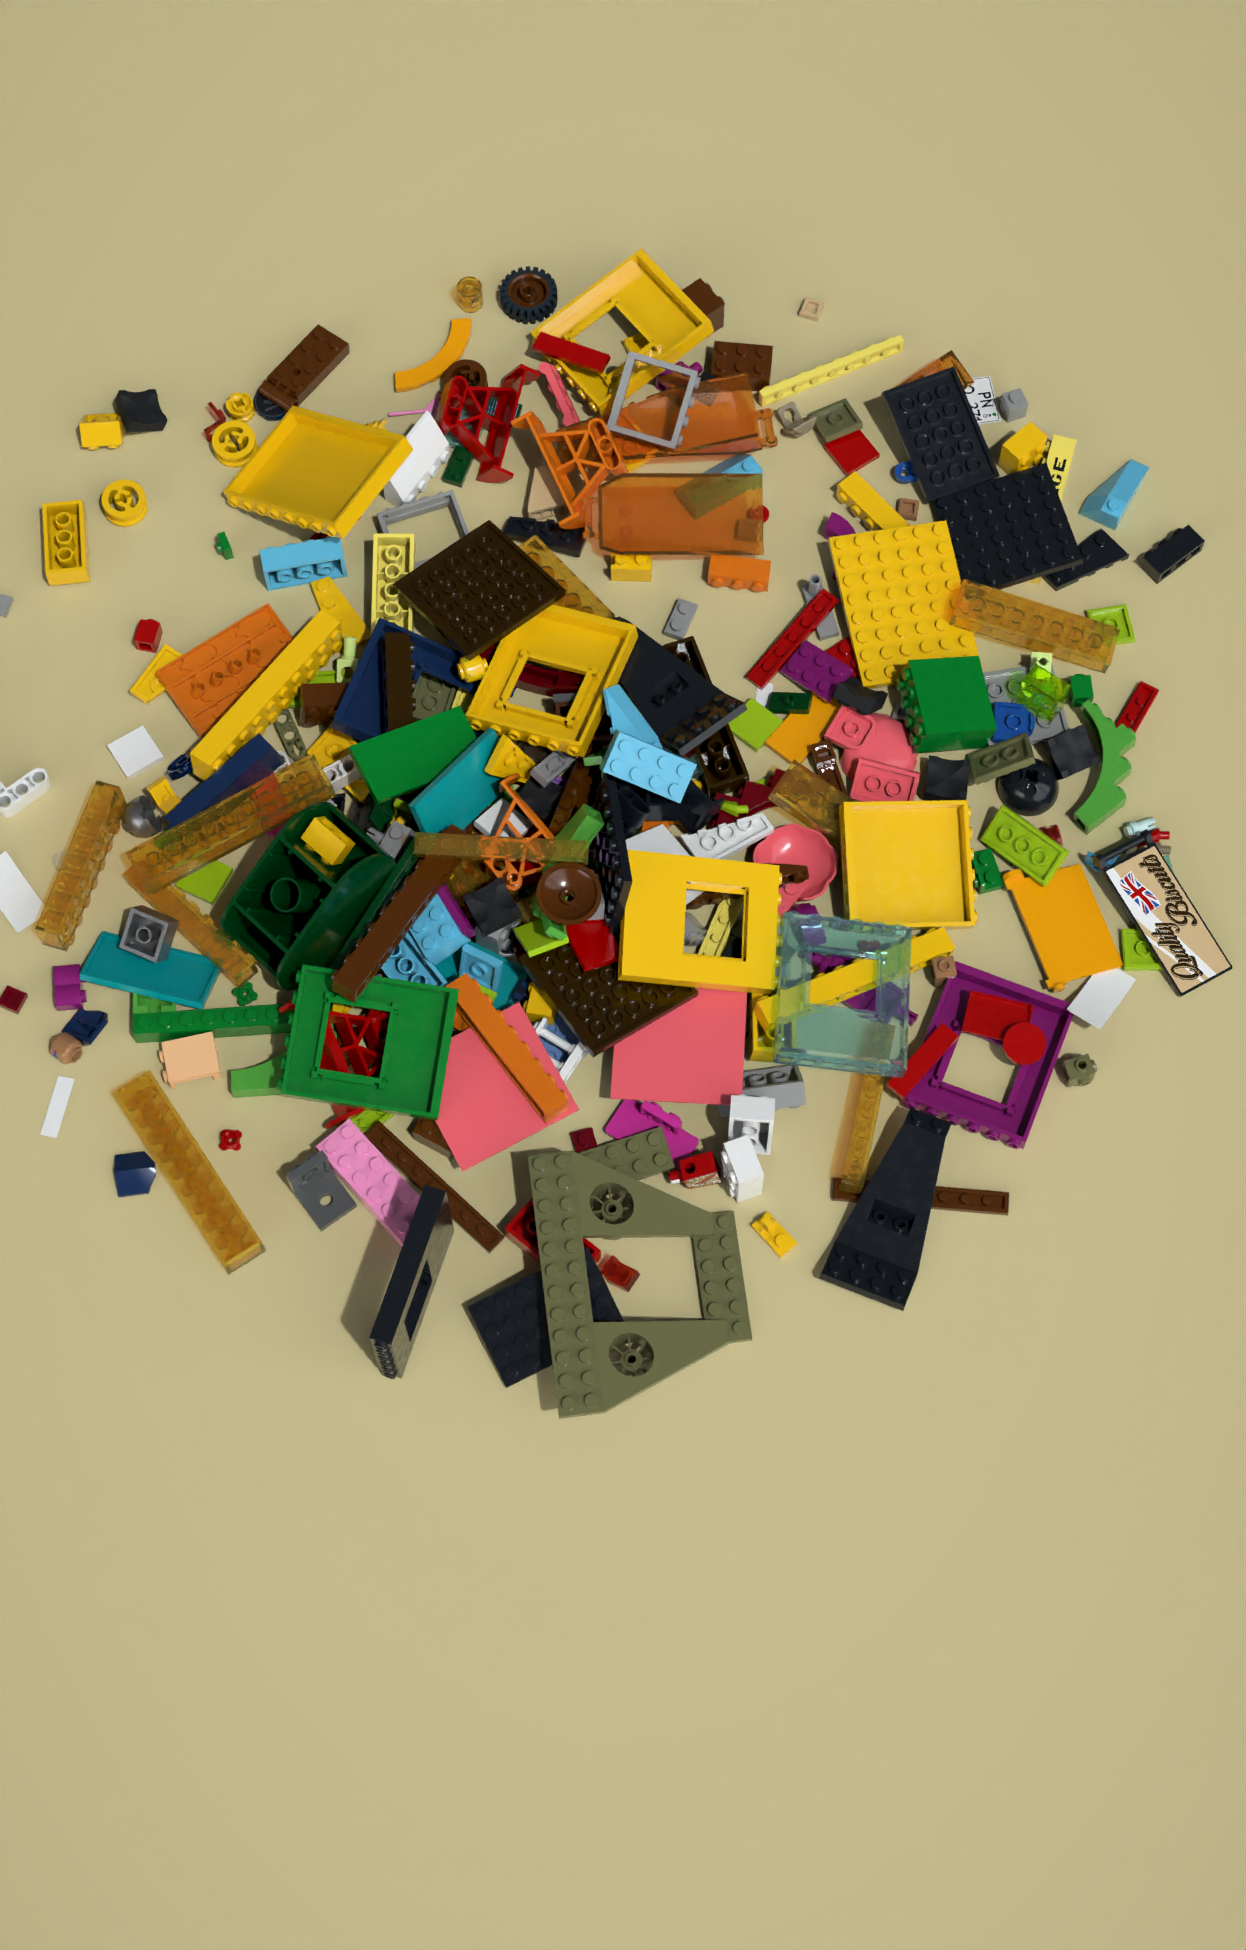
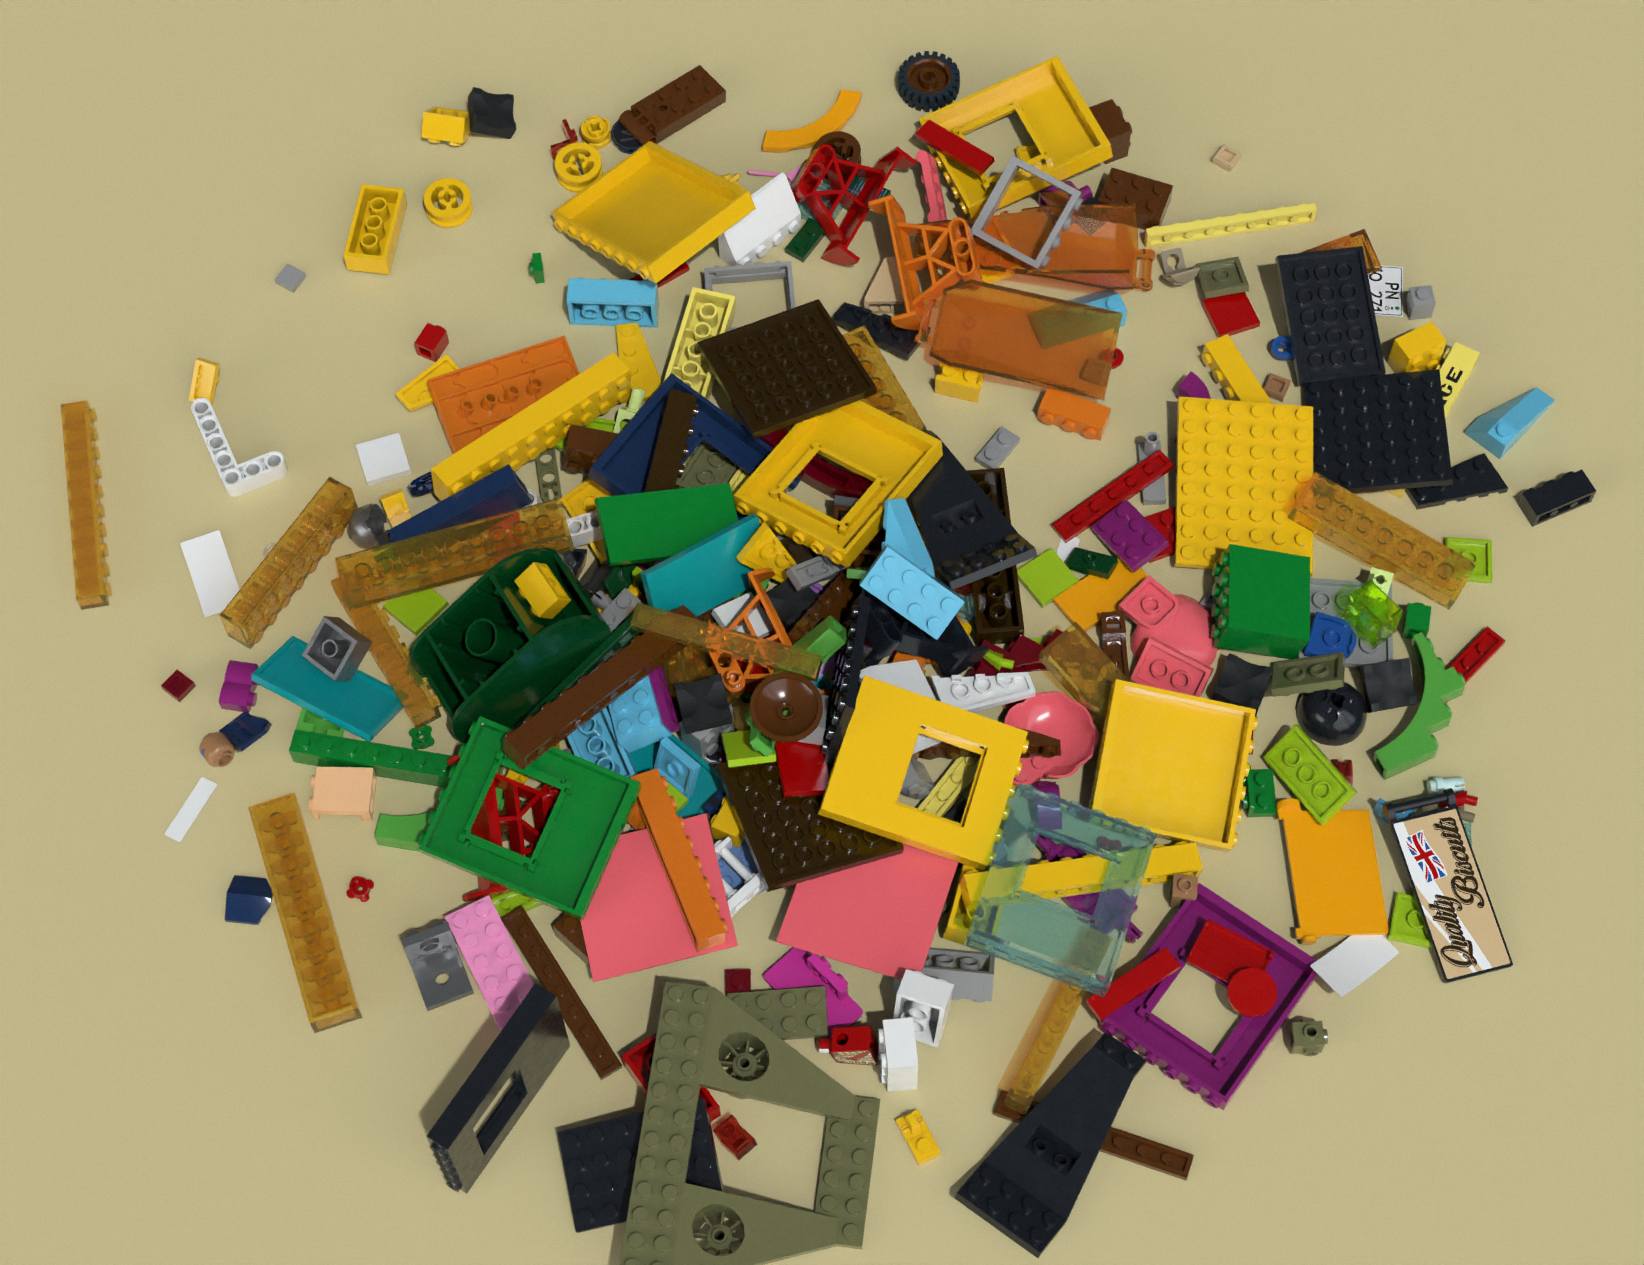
camera: 15 degrees right, 5 degrees down
(470, 294) = (866, 67): clear yellow wheel -> none
(473, 669) = (755, 449): yellow head -> none
(862, 698) = (1168, 573): black brick -> none

